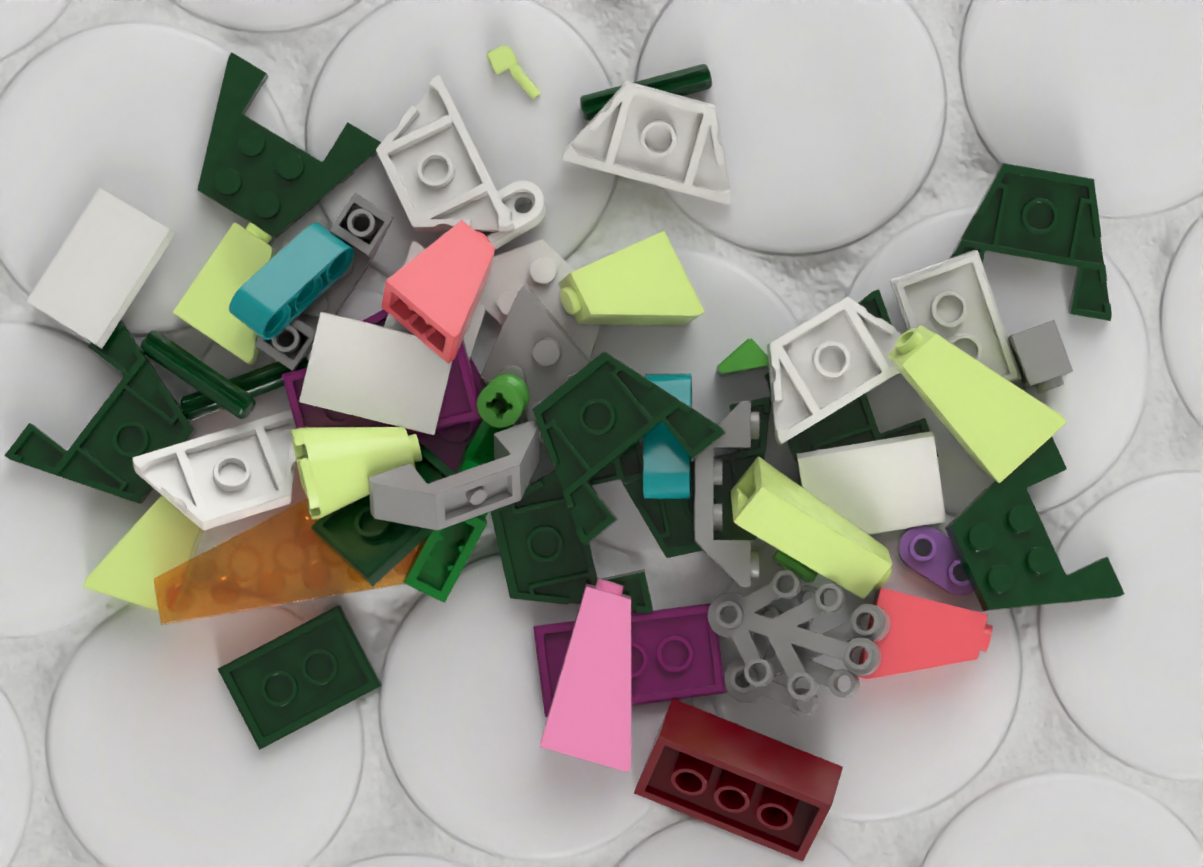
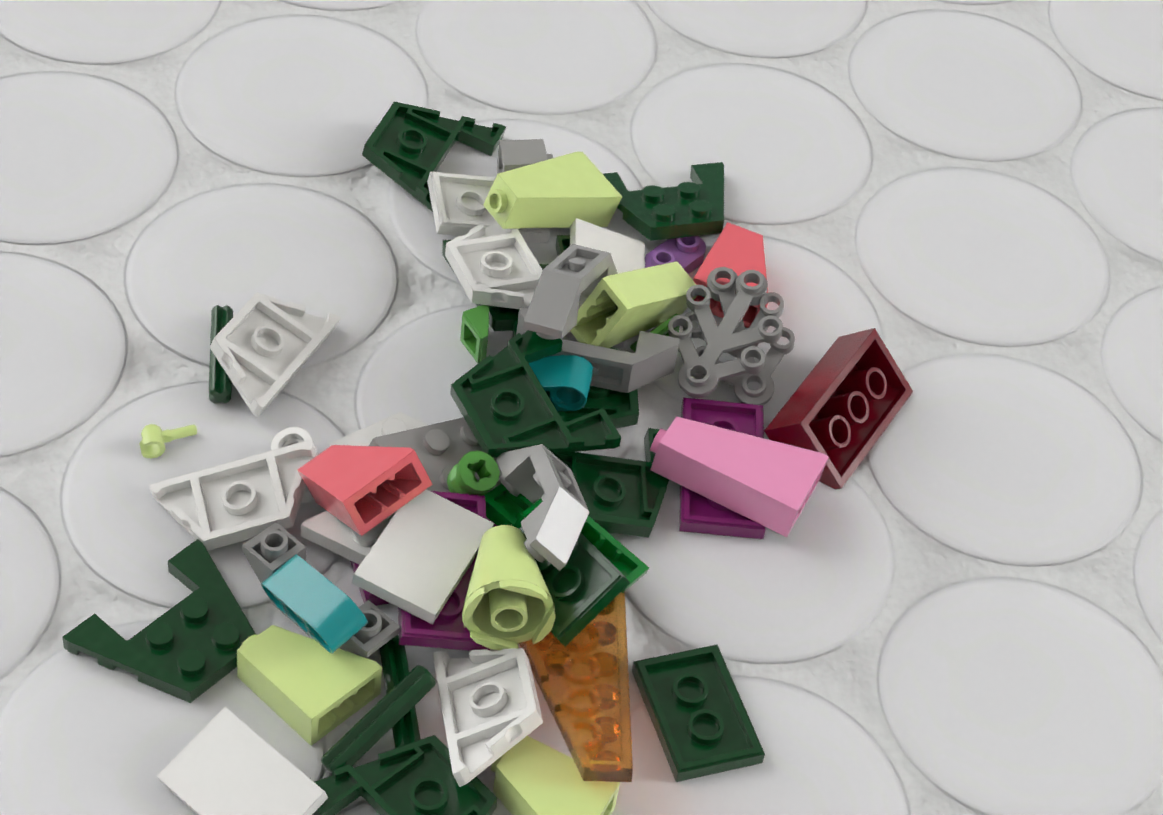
camera: 85 degrees left, 40 degrees down
(632, 288) = (393, 380): yellowish green slope -> none
(763, 450) = (558, 292): none -> light grey slope

